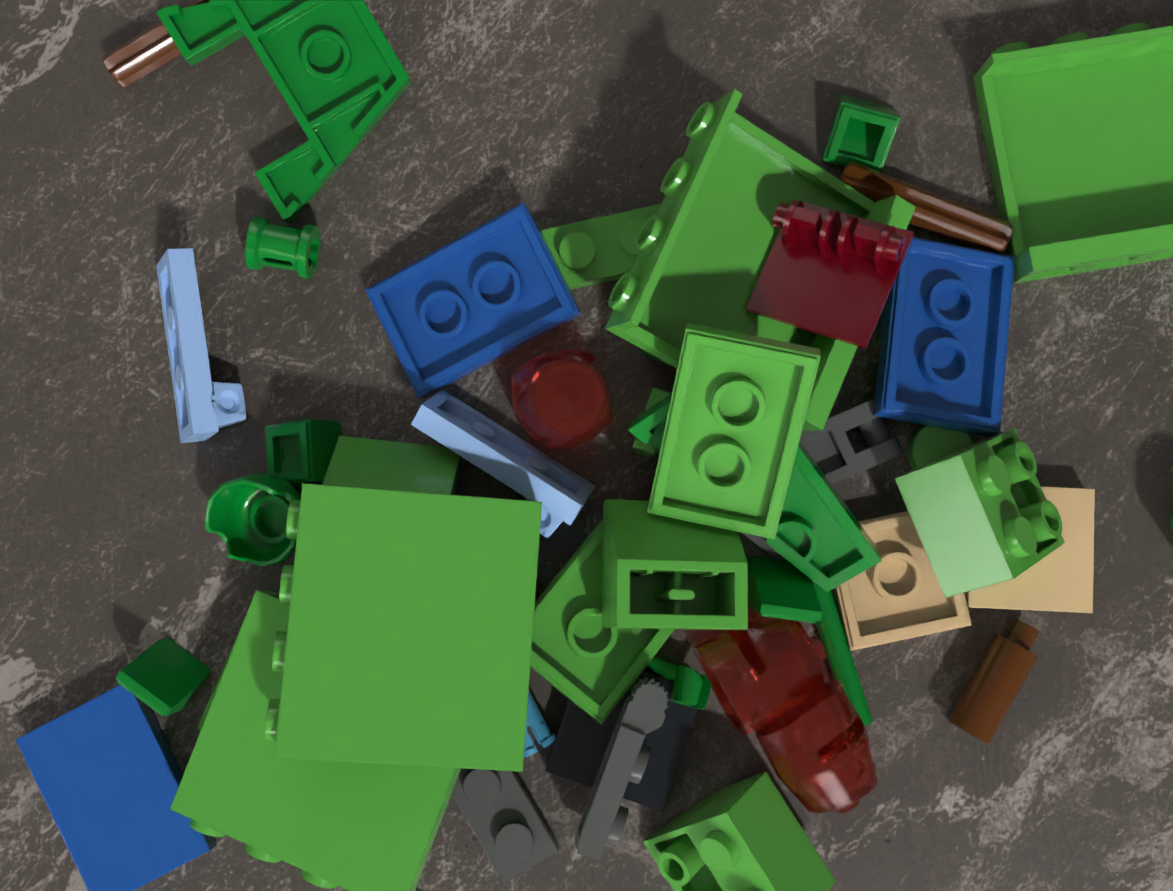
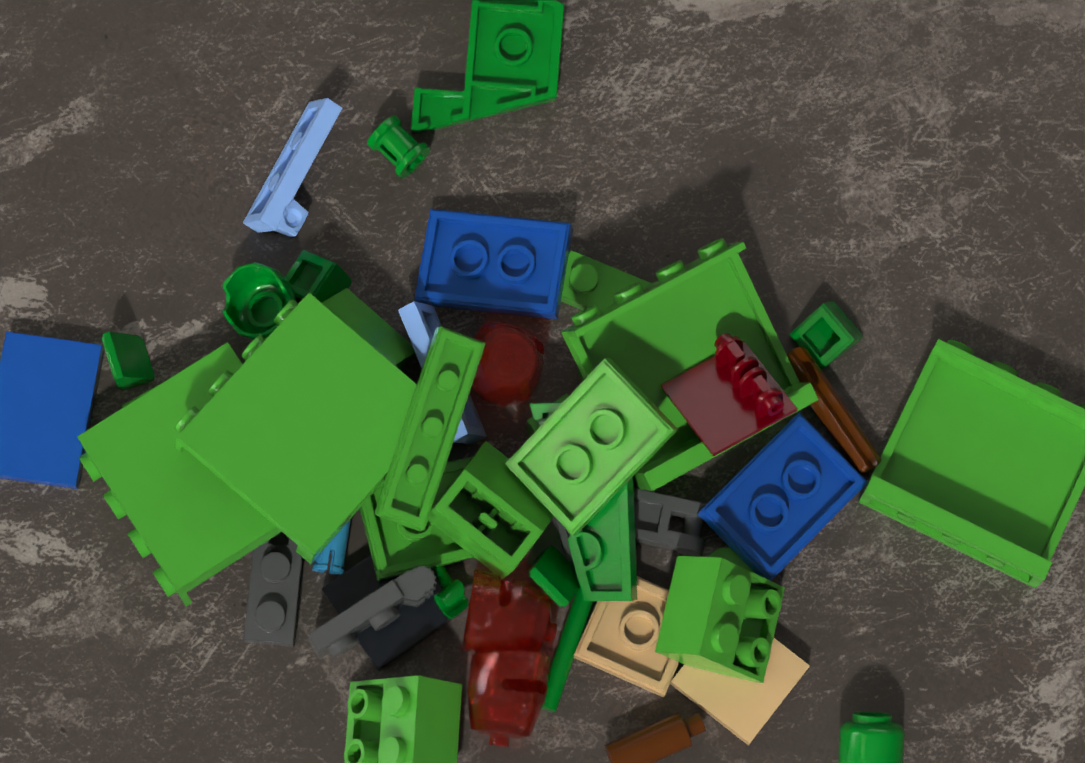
camera: 30 degrees right, 10 degrees down
(544, 538) = (429, 428): none -> bright green tile

